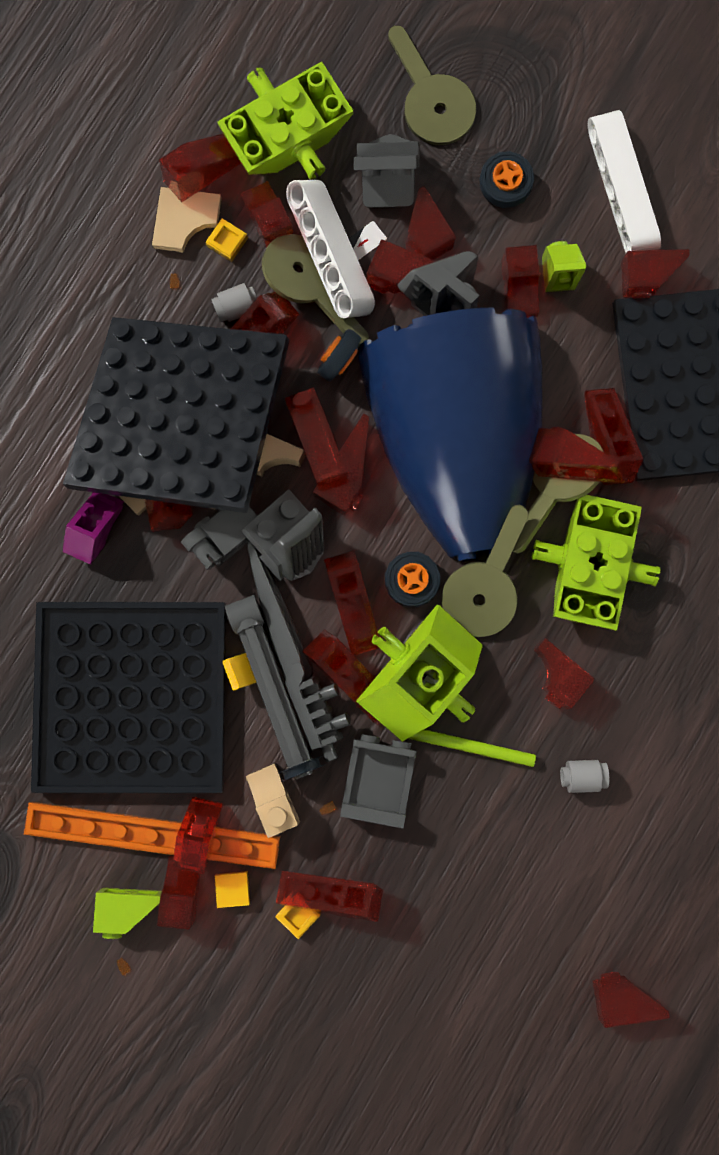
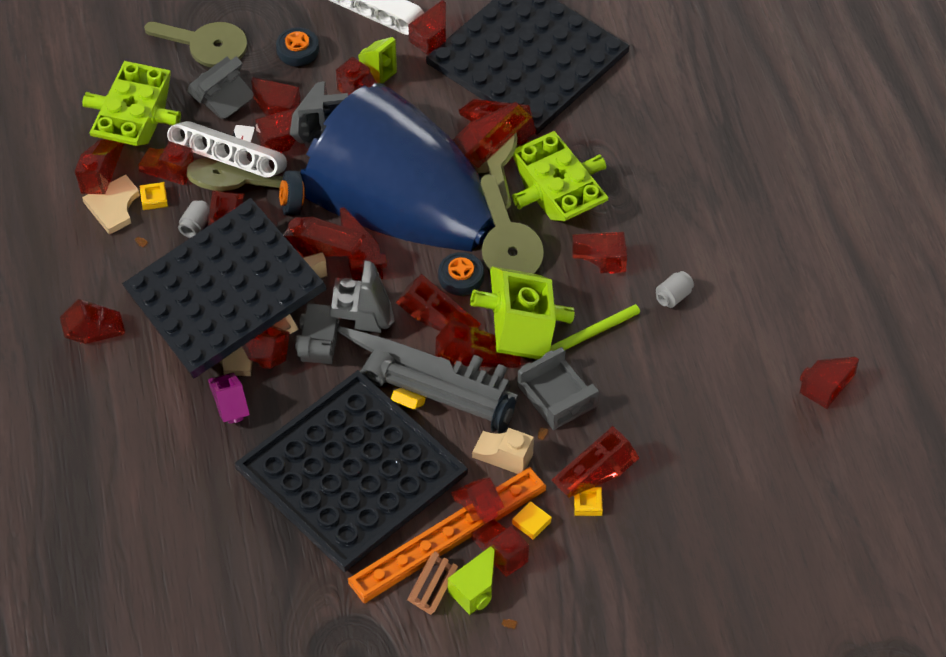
camera: 45 degrees left, 30 degrees down
(48, 339) = (91, 322): none -> clear red slope
(93, 879) = (442, 565): none -> nougat tile

